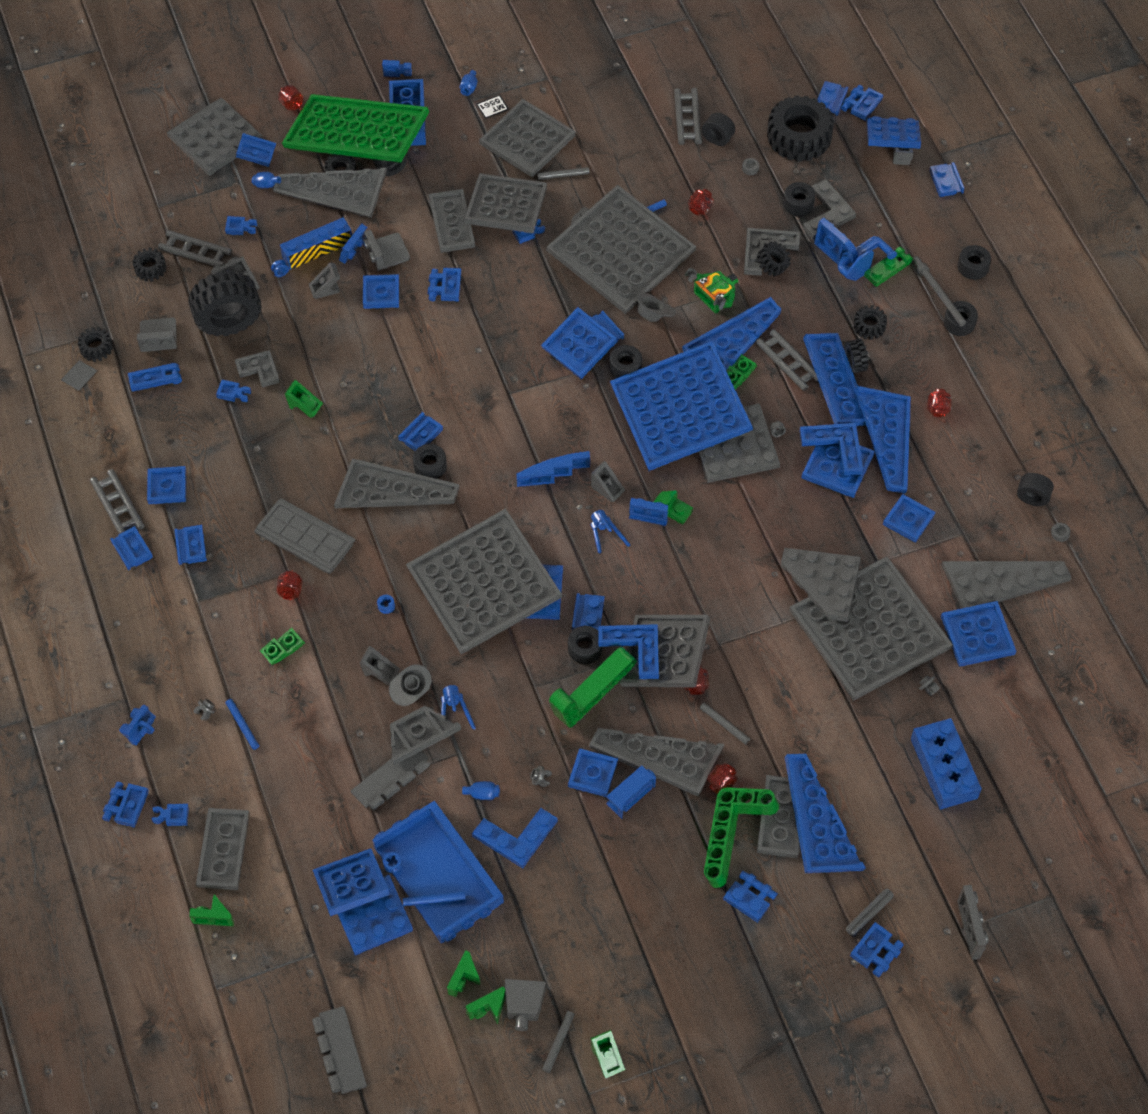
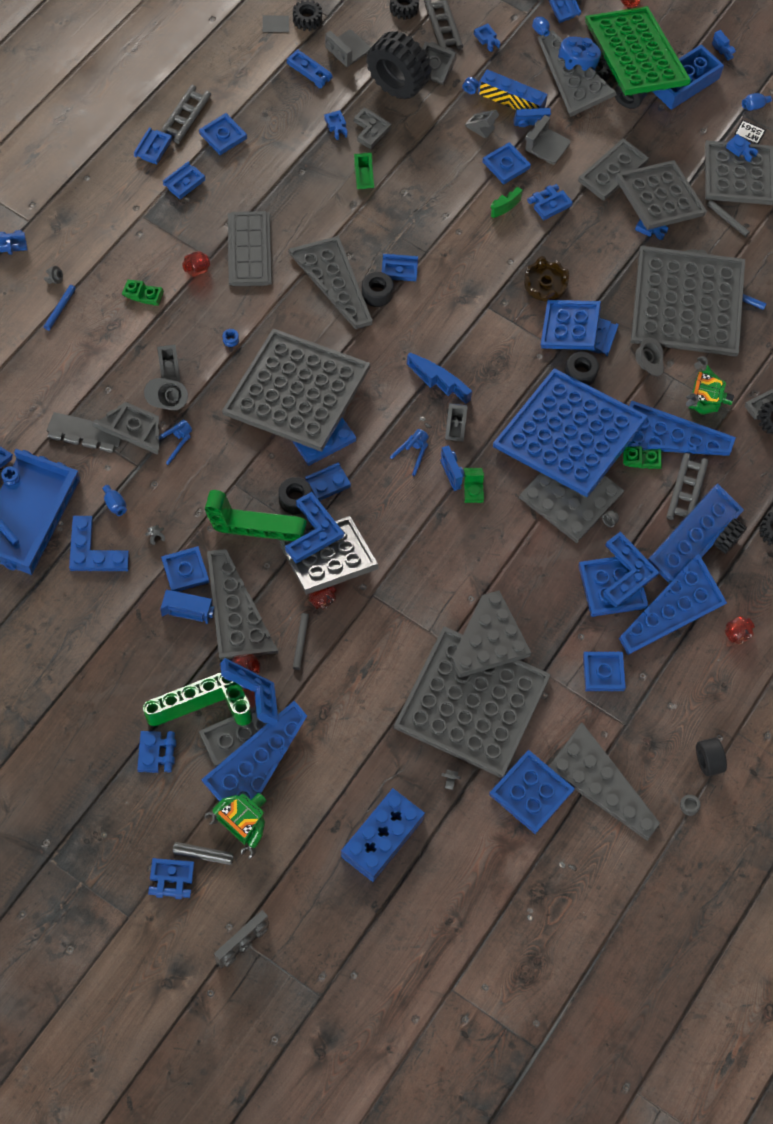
camera: 50 degrees right, 5 degrees up
(322, 166) = (581, 52): none -> blue plate
(420, 321) = (507, 203): none -> green slope
(506, 120) = (741, 146): none -> blue plate
(521, 324) = (549, 271): none -> dark brown plate
(756, 774) = (264, 689): none -> blue plate
(864, 859) = (241, 818): none -> green torso

